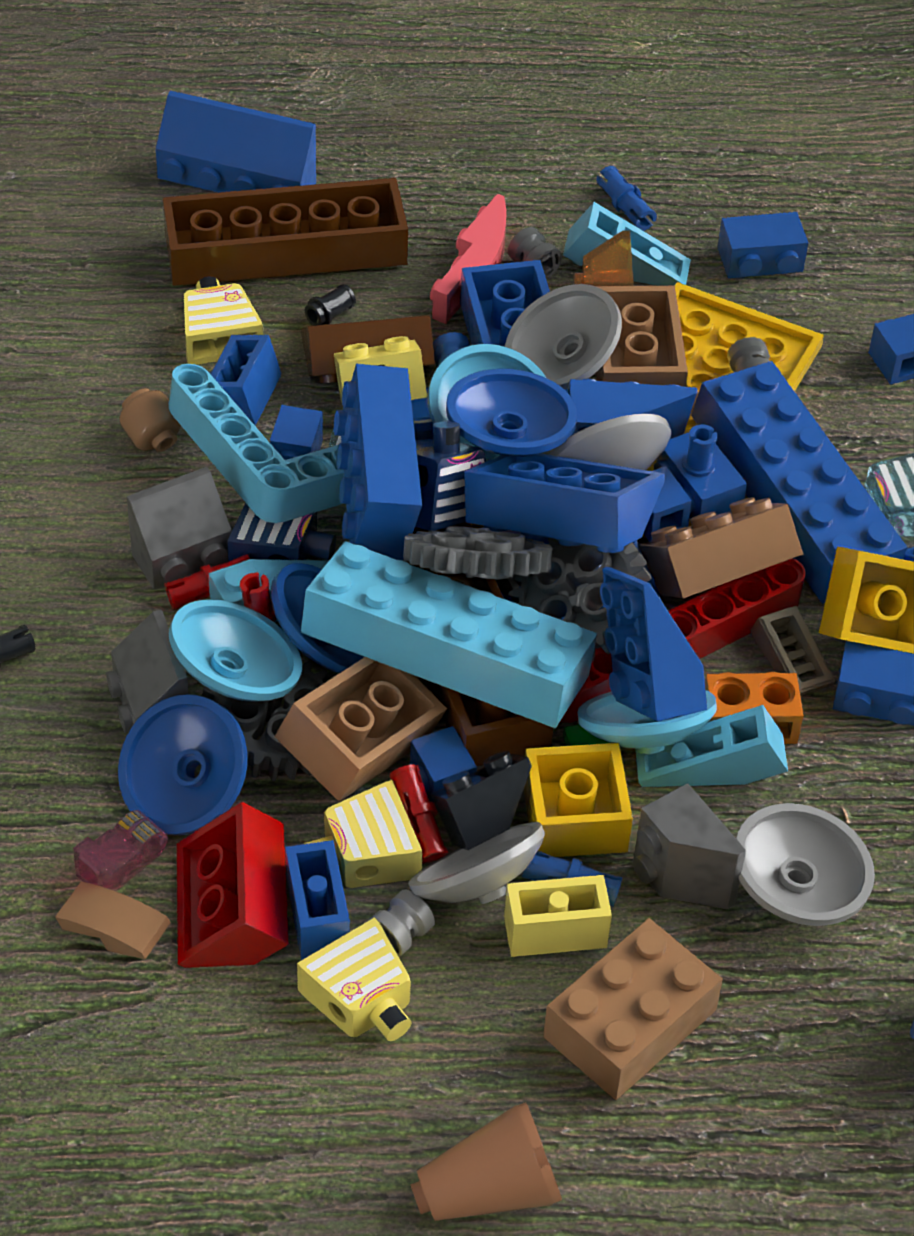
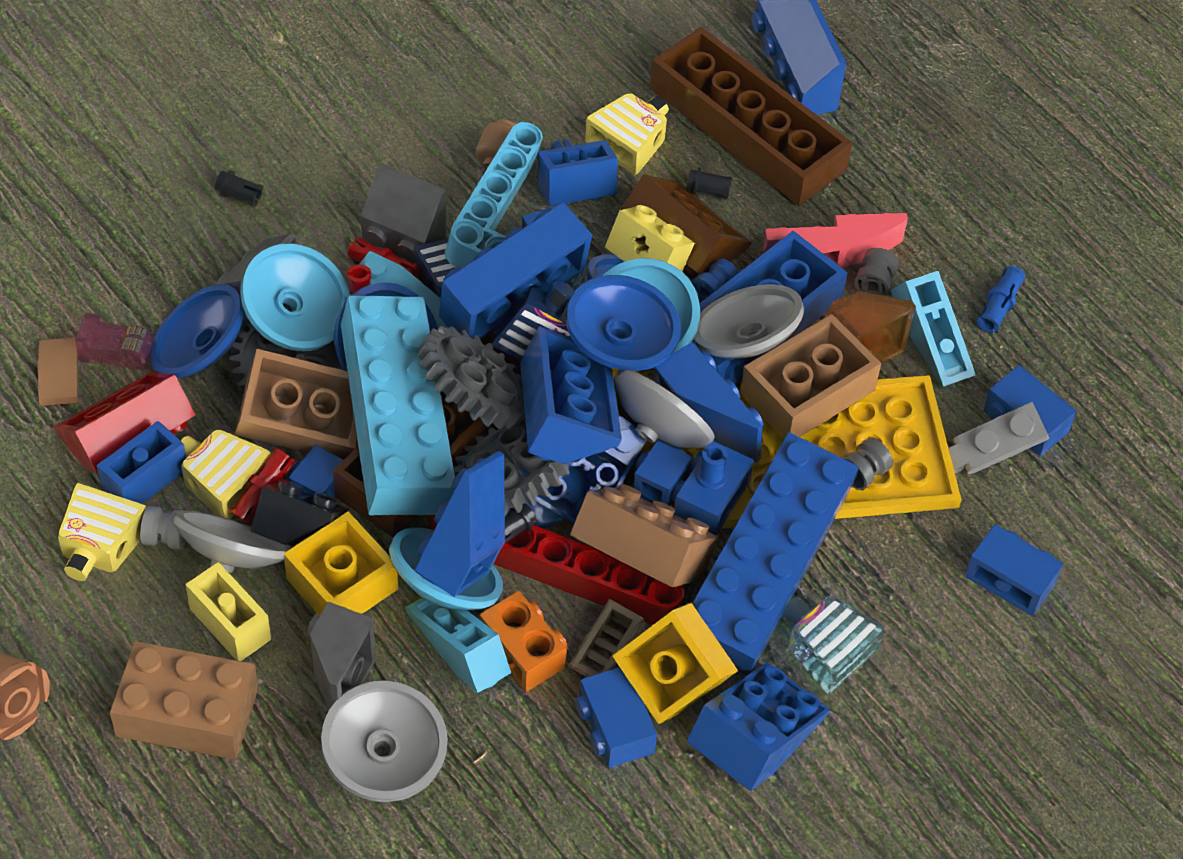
camera: 55 degrees right, 5 degrees up
(549, 867) = (281, 608): blue pin -> none
(784, 273) = (998, 439): none -> light grey hinge

